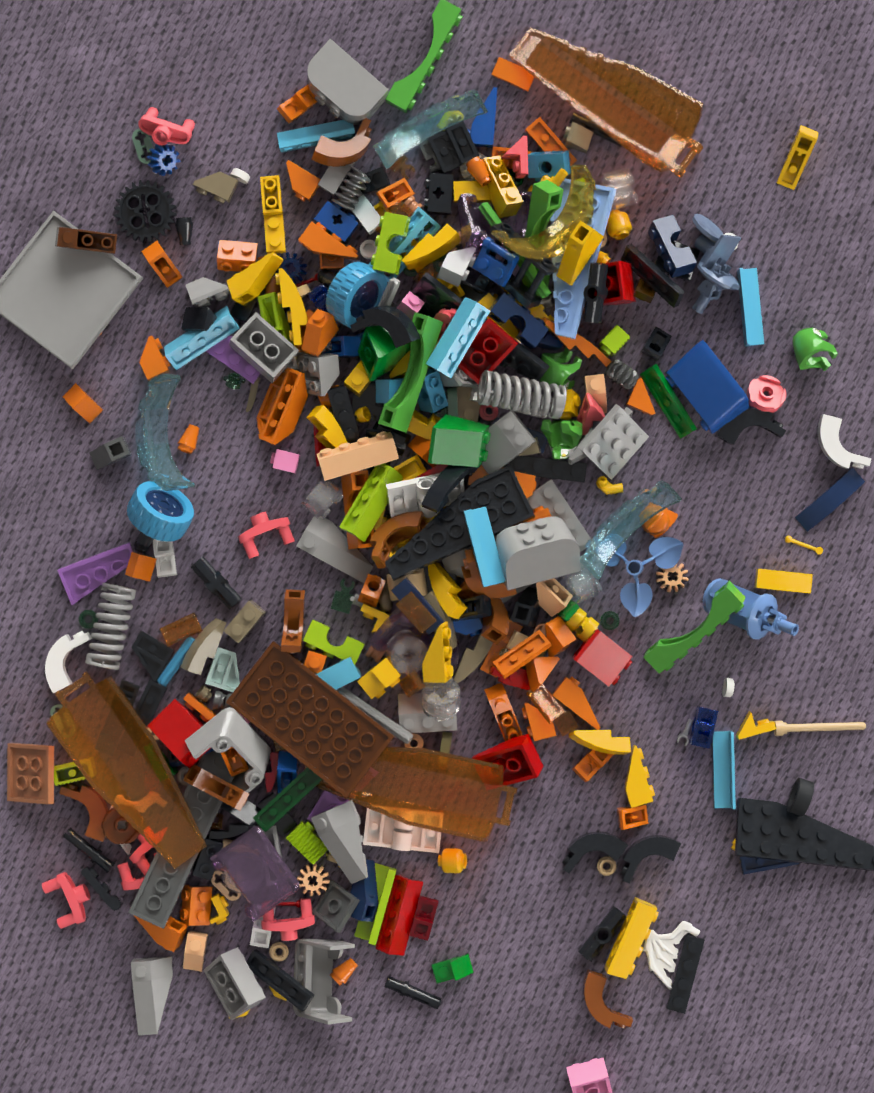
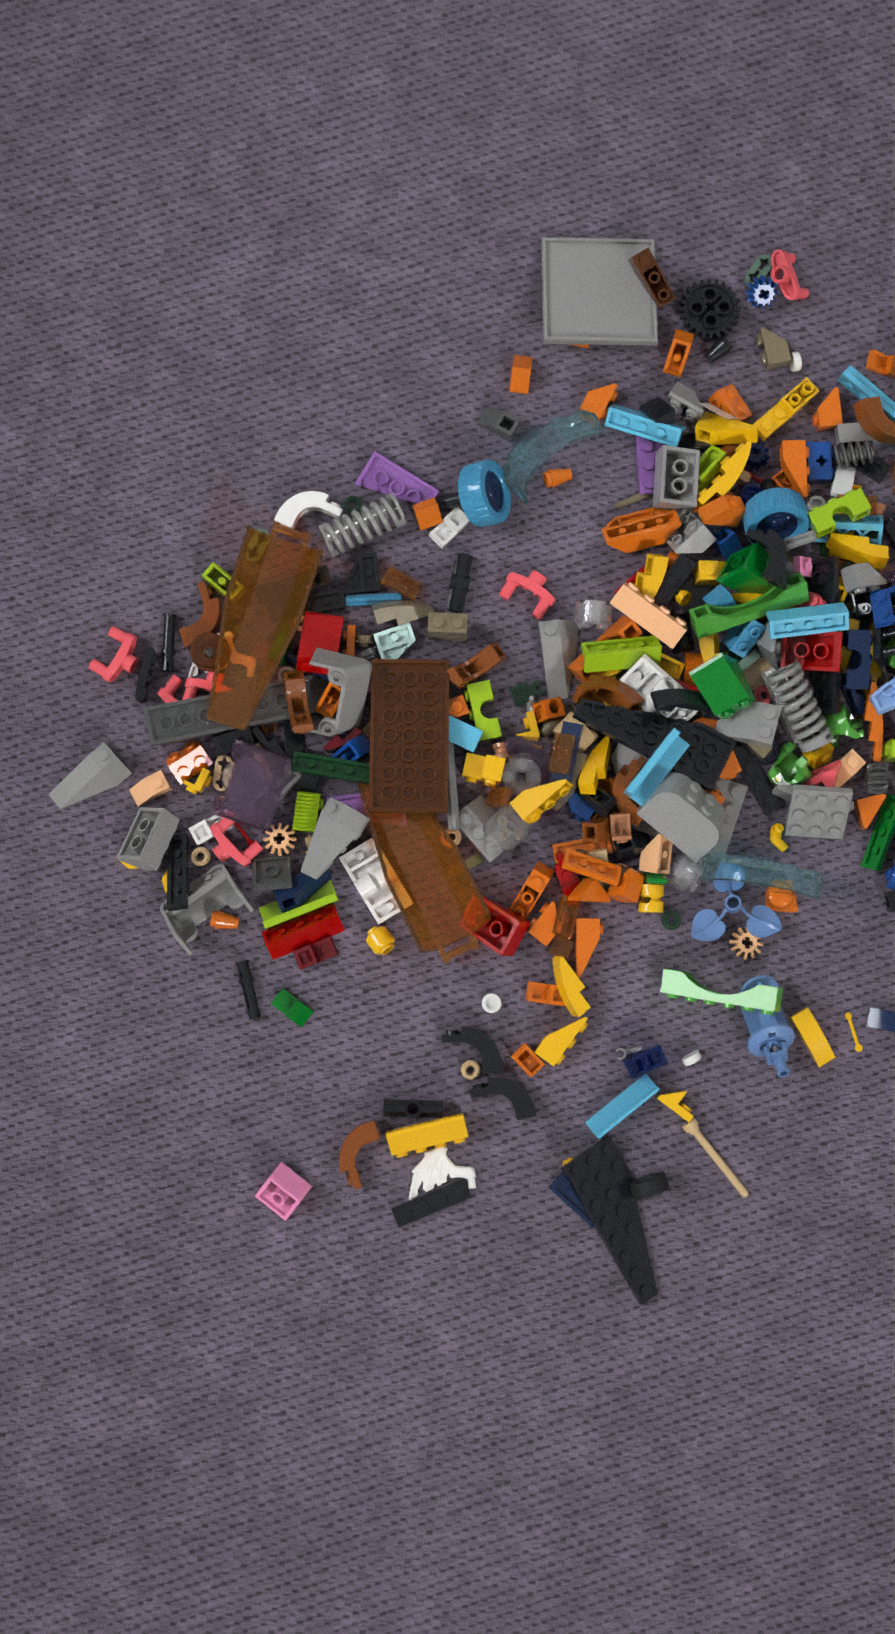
camera: 55 degrees right, 5 degrees down
(30, 773) = (196, 549): nougat plate -> none
(169, 937) = (148, 758): orange slope -> none
(233, 380) = (630, 477): clear green plate -> none
(234, 273) = (715, 409): none -> white sticker
(285, 461) = (598, 564): bright pink brick -> none
(397, 191) = (875, 487): orange slope -> none
(472, 658) = (556, 832): dark tan slope -> none
(508, 608) = (620, 827): none -> nougat bracket
(567, 810) = (491, 1003): none -> white tile
(603, 657) = (638, 935): slope -> none

